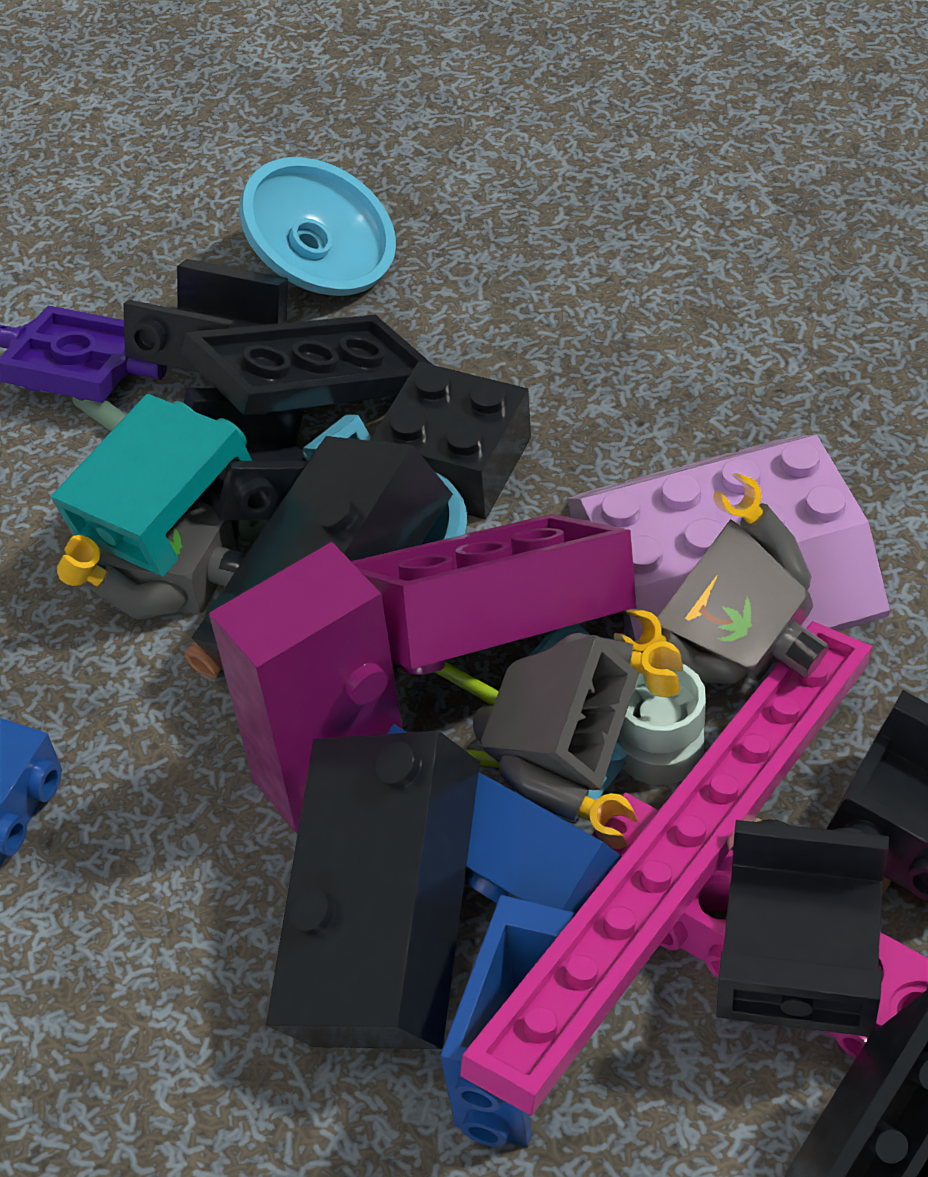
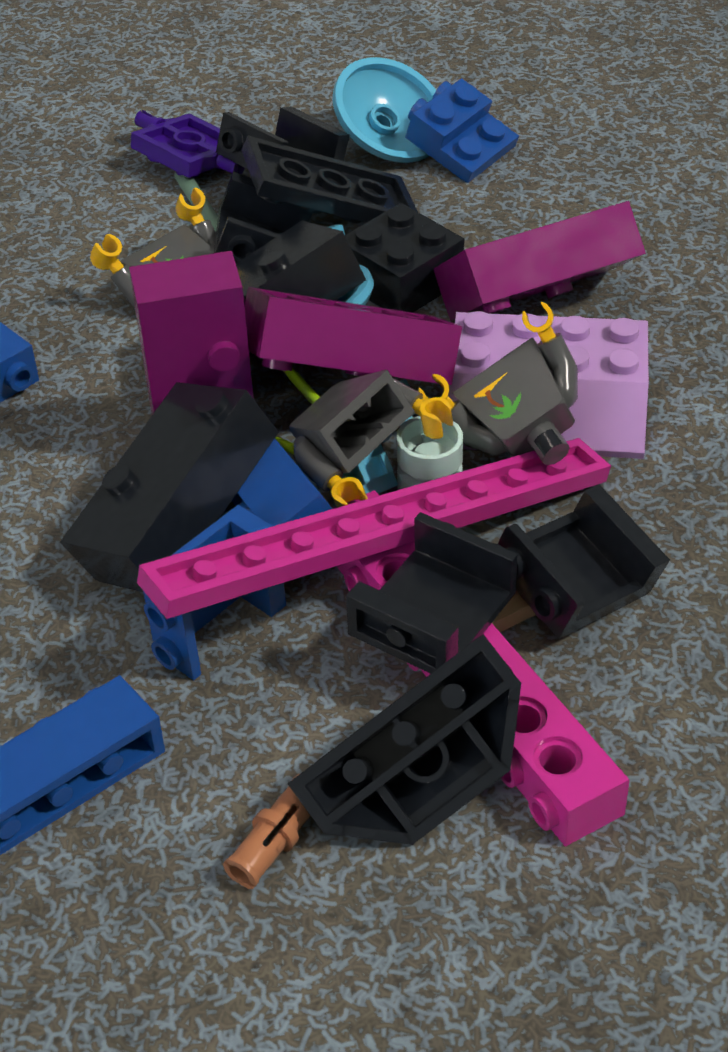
camera: 20 degrees right, 5 degrees down
(147, 479) = (173, 211): teal panel -> none
(416, 228) = (459, 130): none -> blue plate
(636, 394) = (539, 261): none -> magenta brick

